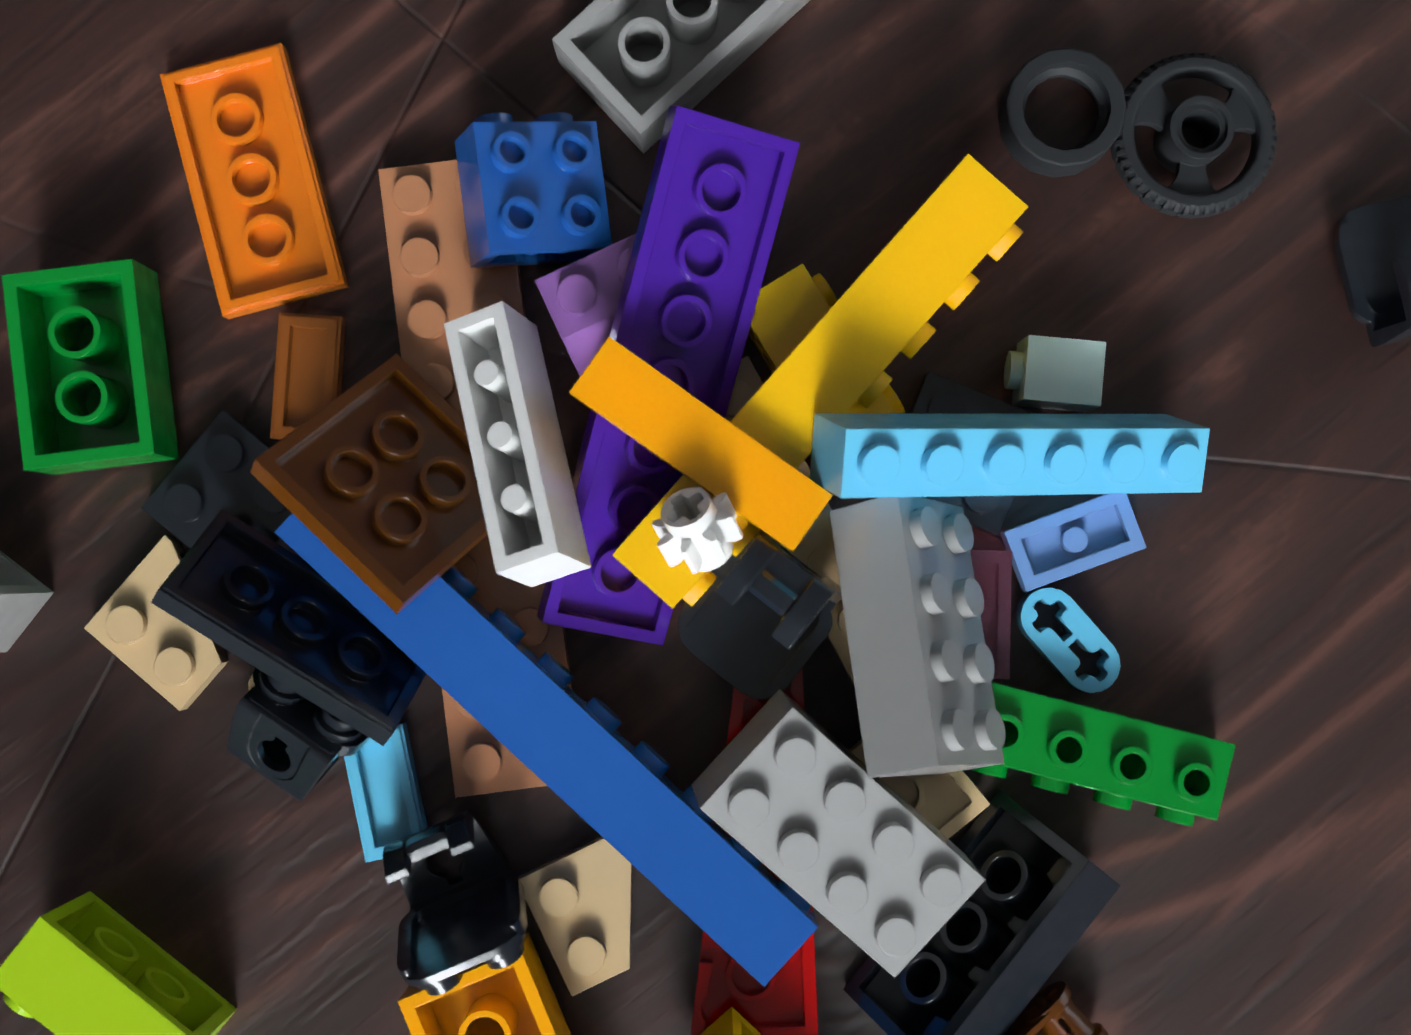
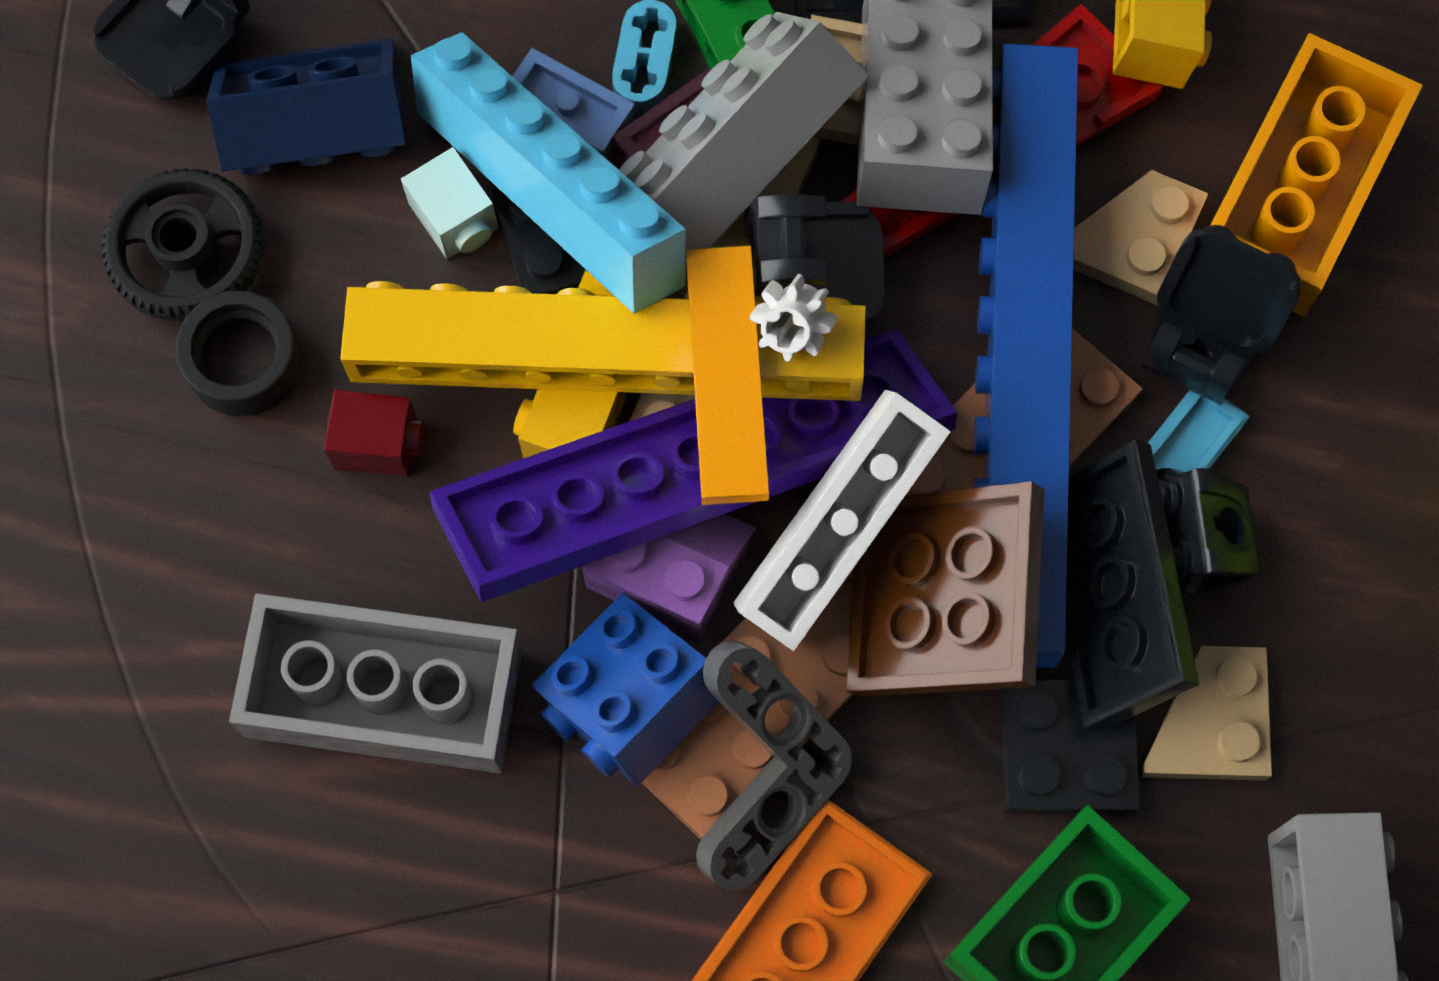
camera: 130 degrees left, 15 degrees down
(306, 368) = (923, 767): dark orange tile -> none
(356, 179) = (788, 770): none -> dark grey beam
(905, 164) = (373, 433): none -> dark red brick
(1243, 326) = (307, 106): none -> dark blue slope

